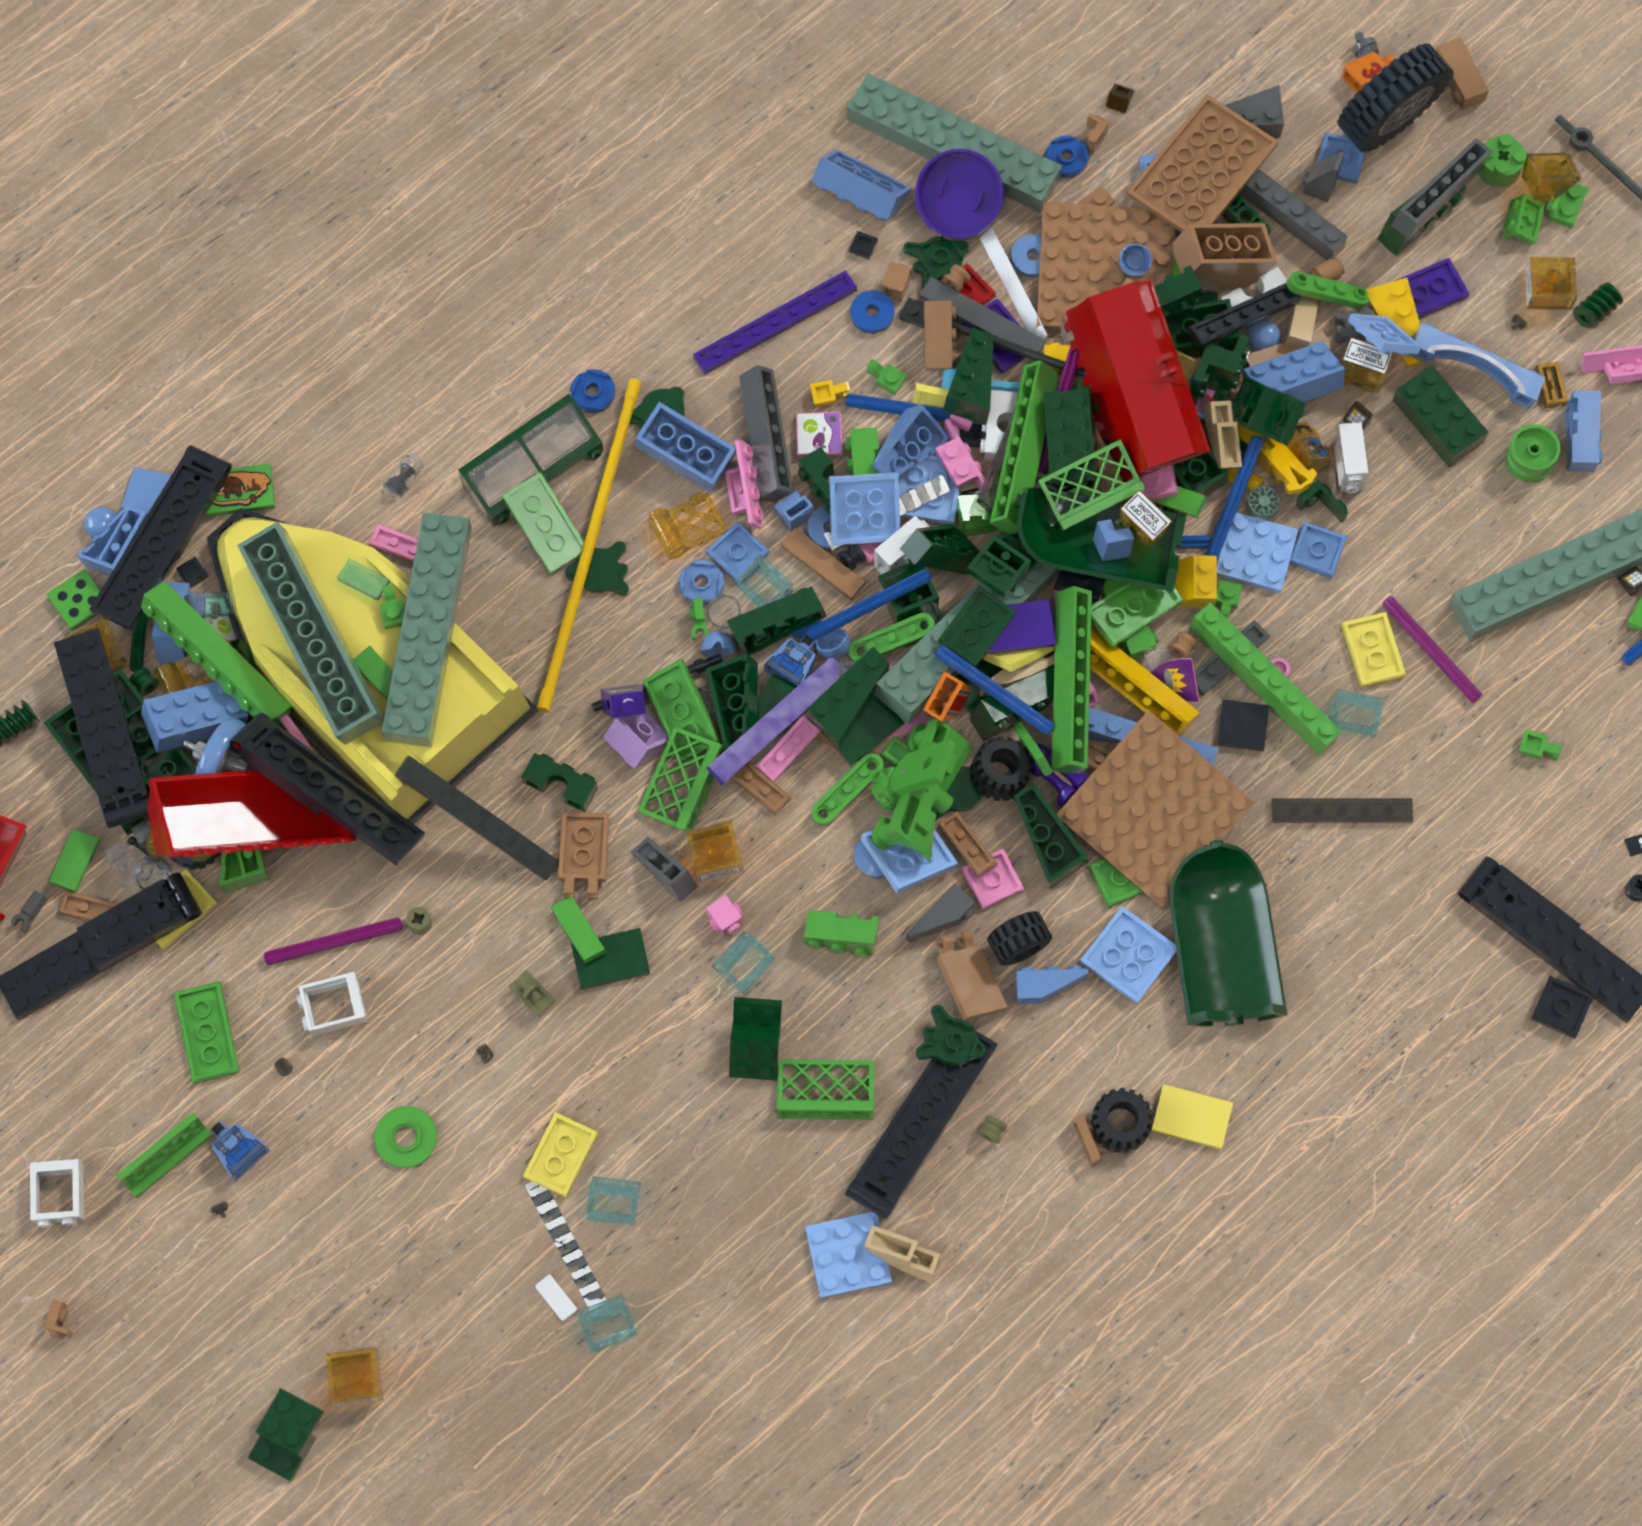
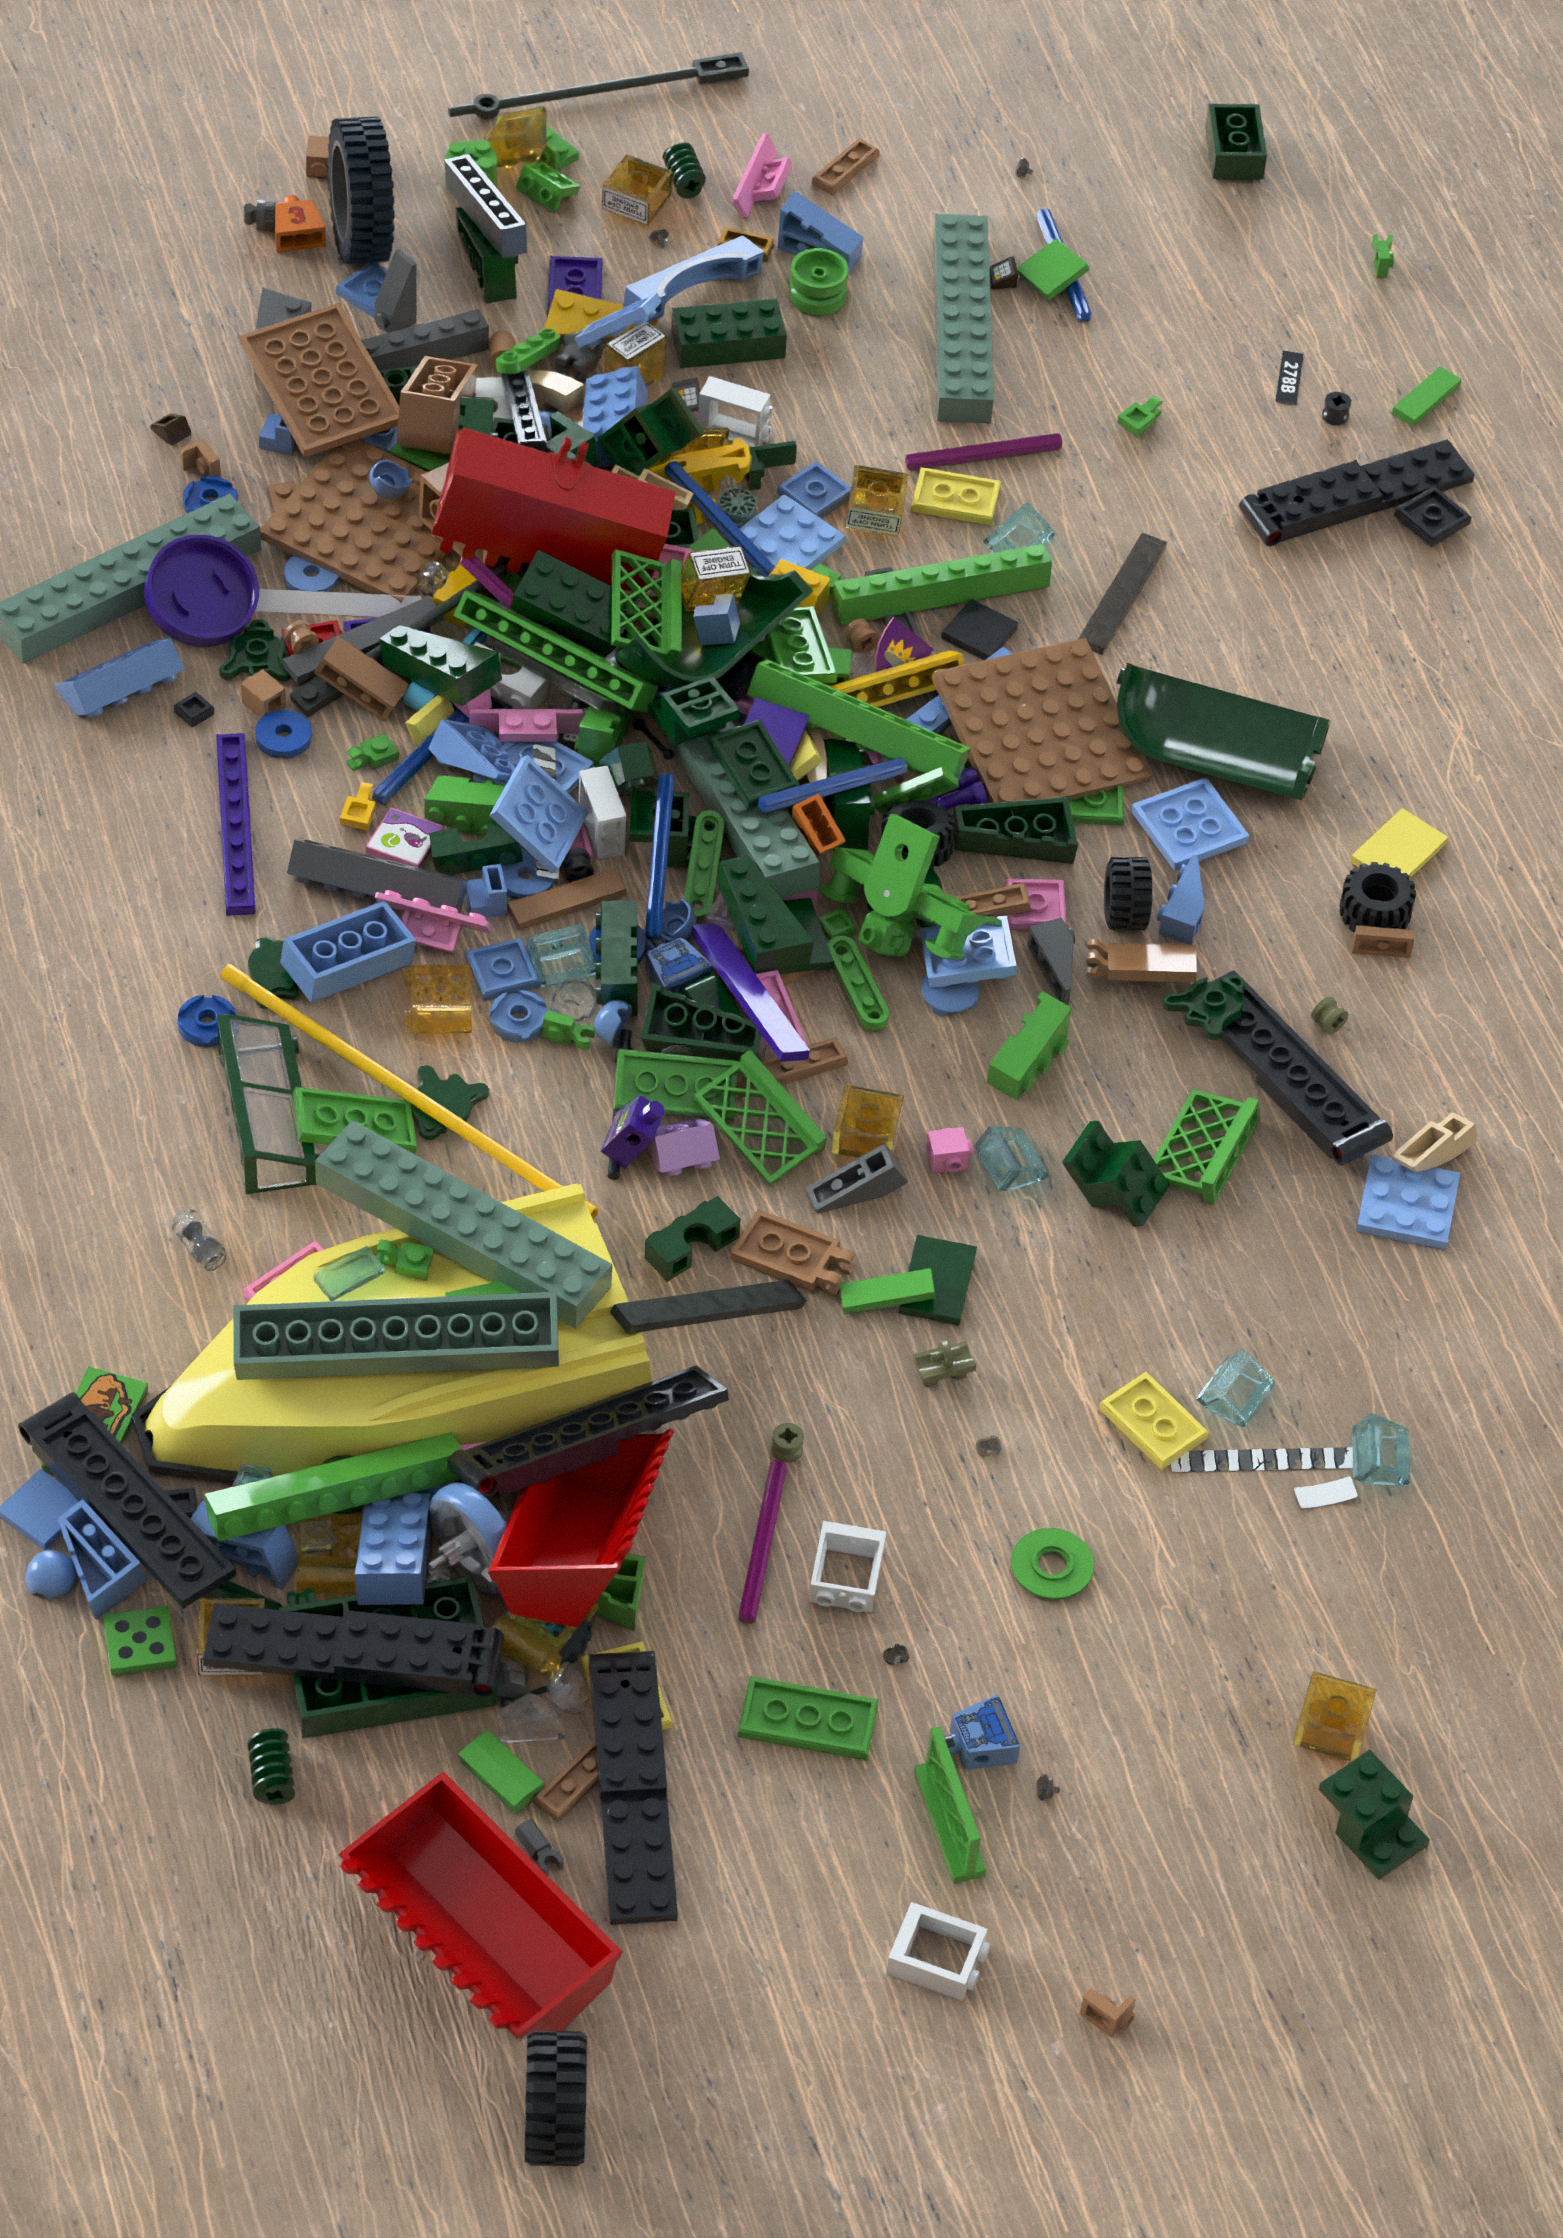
camera: 70 degrees left, 20 degrees down
(1322, 595) = (876, 500): none -> clear yellow brick

